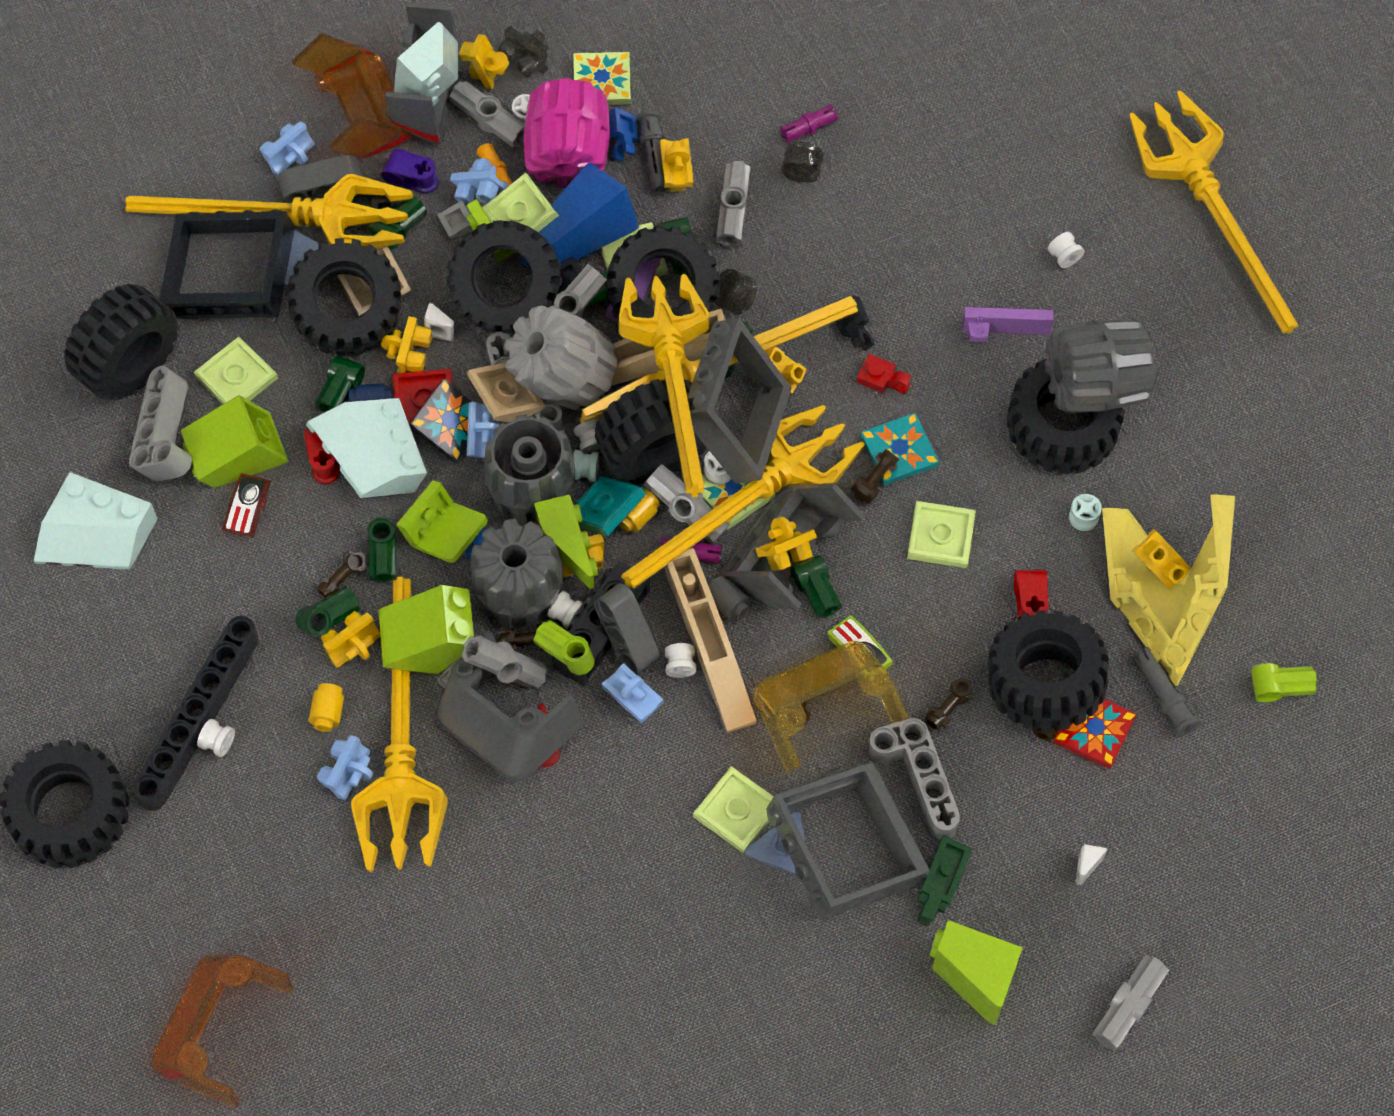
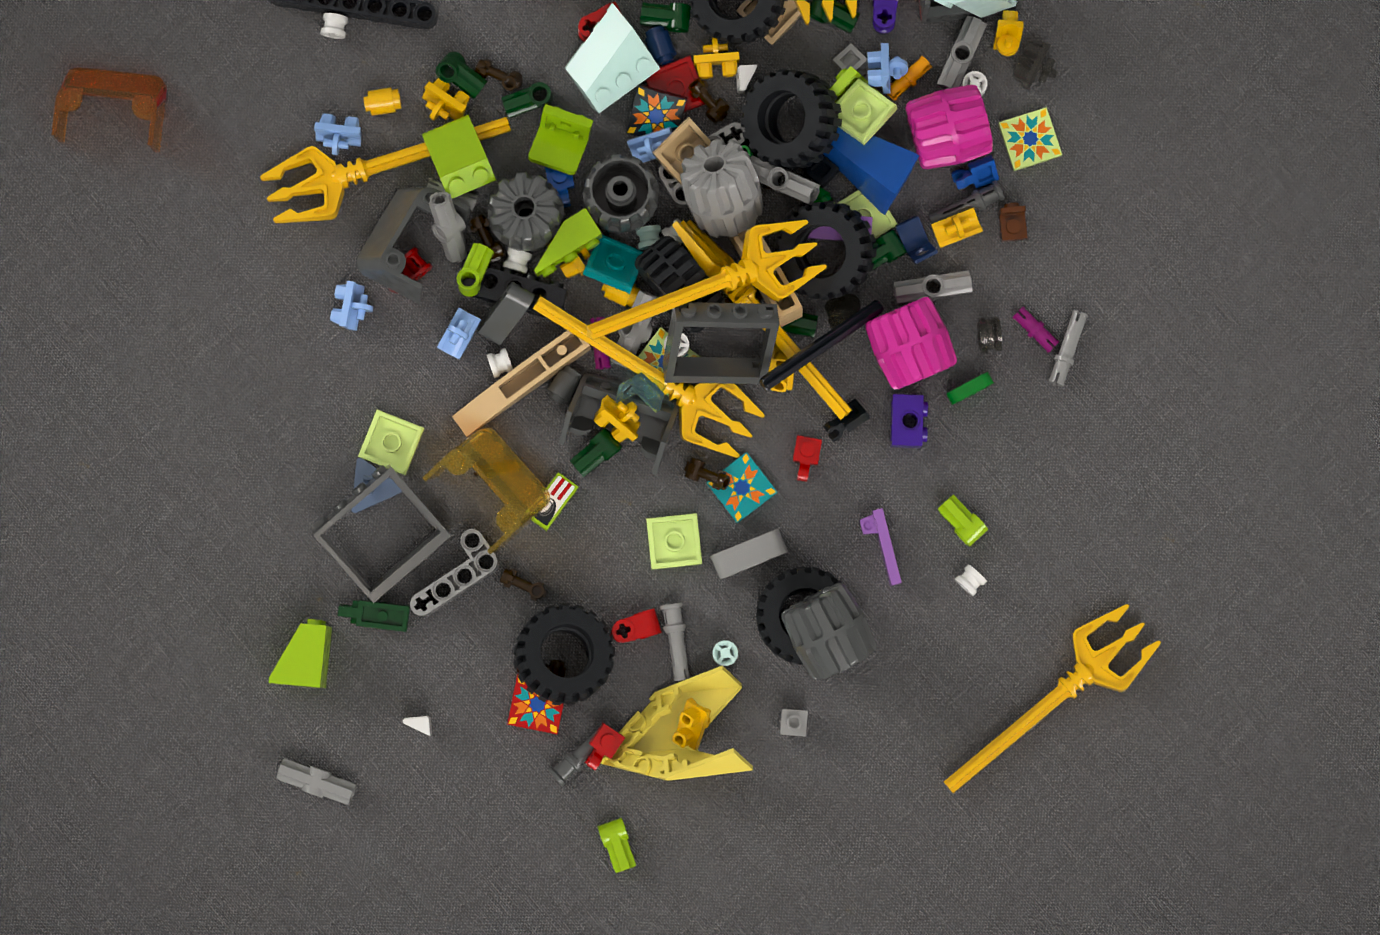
camera: 75 degrees right, 20 degrees up
(460, 360) = (717, 109): none -> dark brown bar
(545, 804) = (353, 305): none -> light blue hips
(671, 208) = (915, 239): none -> dark blue bracket
(686, 116) = (1012, 222): none -> reddish brown bracket
(765, 504) = (644, 389): none -> clear light blue bracket
(770, 307) = (821, 345): none -> black axle
(792, 227) = (911, 343): none -> dark pink wheel
(848, 104) = (1064, 358): none -> light grey pin
(854, 198) = (969, 388): none -> green beam
(880, 277) = (901, 435): none -> dark purple brick
(978, 458) = (749, 554): none -> light grey beam
(1003, 238) = (966, 525): none -> lime piece
(1044, 557) = (674, 628): none -> light grey pin
(1164, 660) = (605, 742): none -> red plate
(1182, 460) = (793, 722): none -> light grey brick

